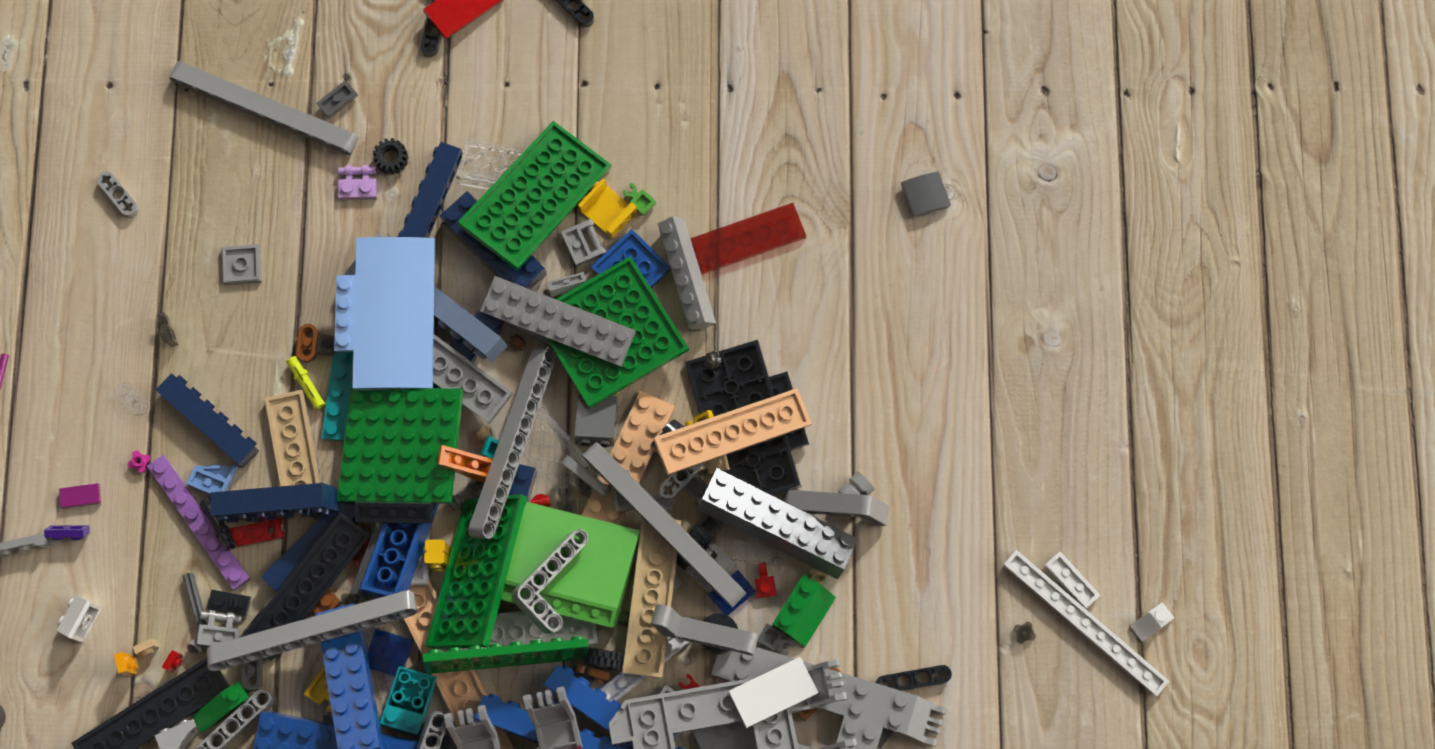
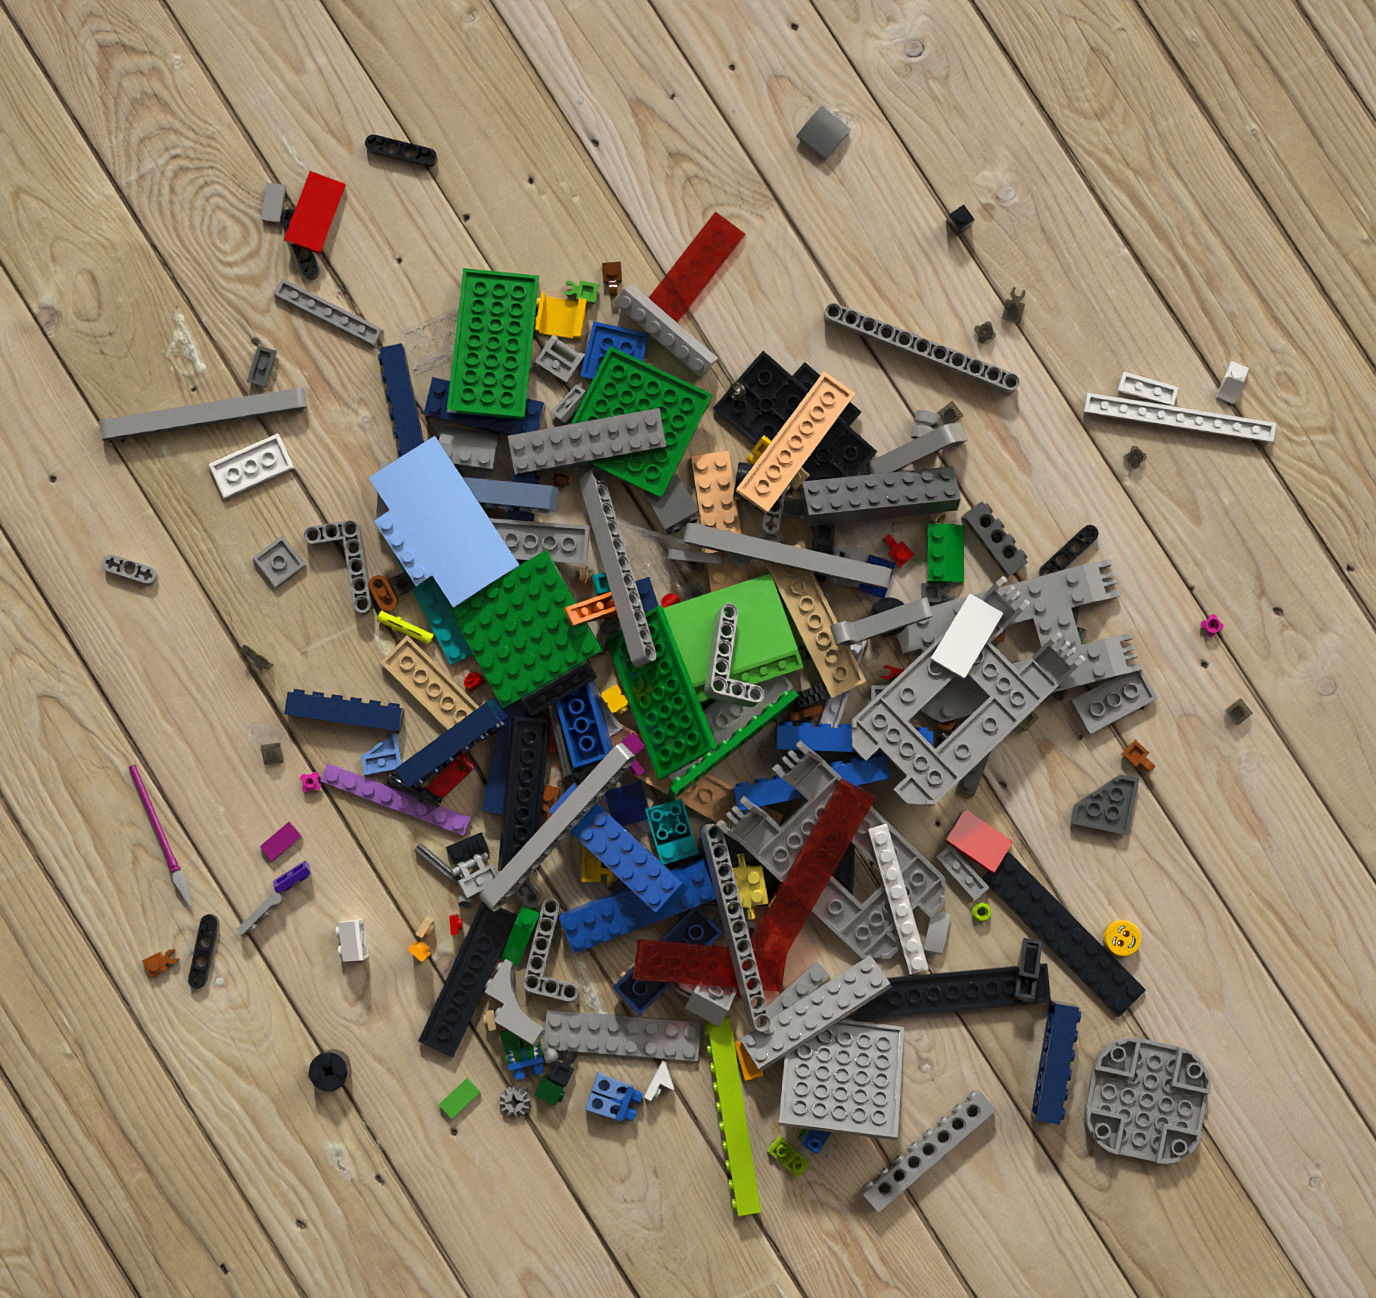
camera: 30 degrees left, 10 degrees up
(124, 417) = (272, 753): none -> clear smoke plate
(273, 173) = (251, 466): none -> white tile
(300, 298) = (351, 559): none -> light grey beam
(331, 464) = (473, 681): none -> red plate
(357, 188) = (332, 434): lavender plate -> none
(387, 146) = (351, 395): black tyre -> none
(421, 90) = (328, 312): none -> light grey tile
(425, 605) = (635, 745): none -> magenta brick
(460, 269) = (470, 448): none -> light grey slope
(673, 202) = (612, 274): none -> reddish brown plate
(852, 656) = (995, 550): none -> dark grey brick
(885, 493) = (950, 413): none -> clear smoke plate
(896, 431) = (931, 348): none -> light grey beam
(964, 439) = (985, 327): none -> clear smoke plate
(996, 335) = (960, 220): none -> black brick
(997, 438) = (1013, 308): none -> clear smoke plate

